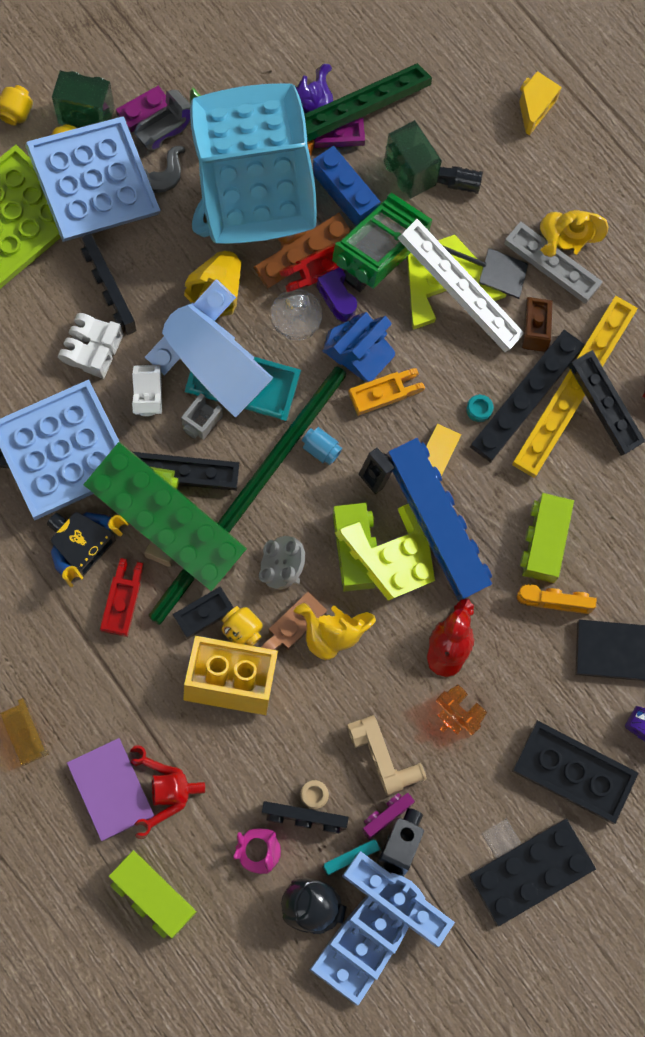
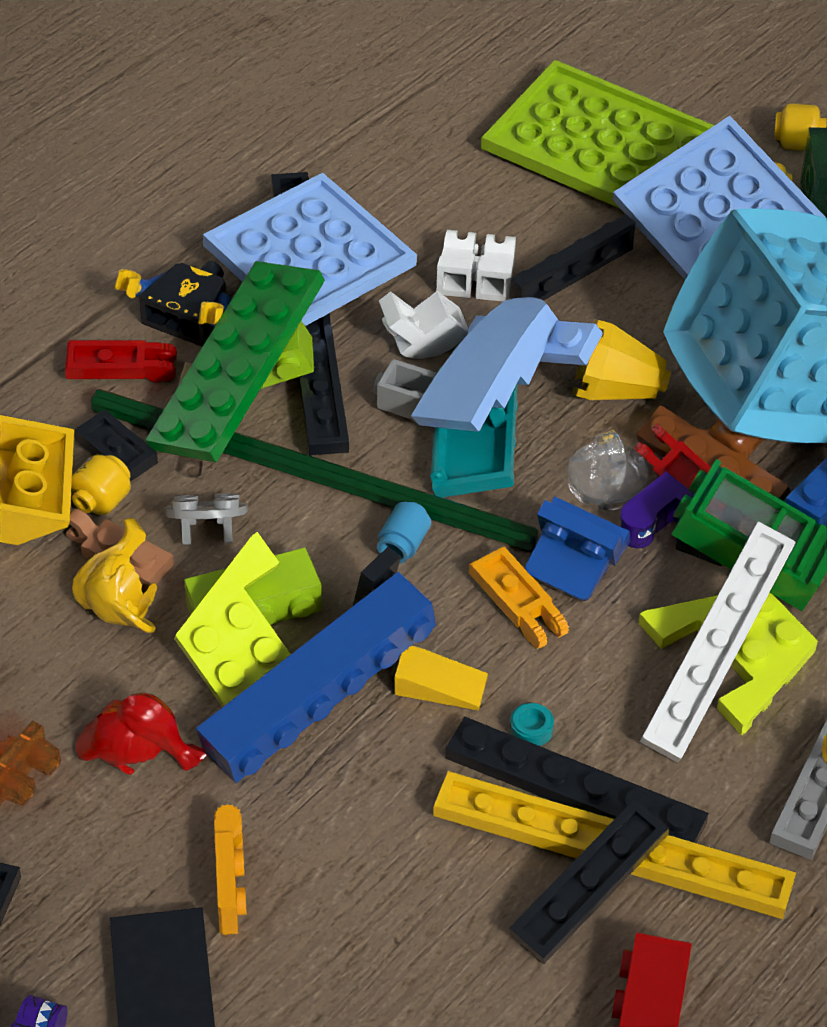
camera: 85 degrees right, 25 degrees down
(499, 271) = (777, 713): piece -> none
(537, 324) = (707, 779): reddish brown slope -> none
(547, 537) = (330, 840): lime brick -> none

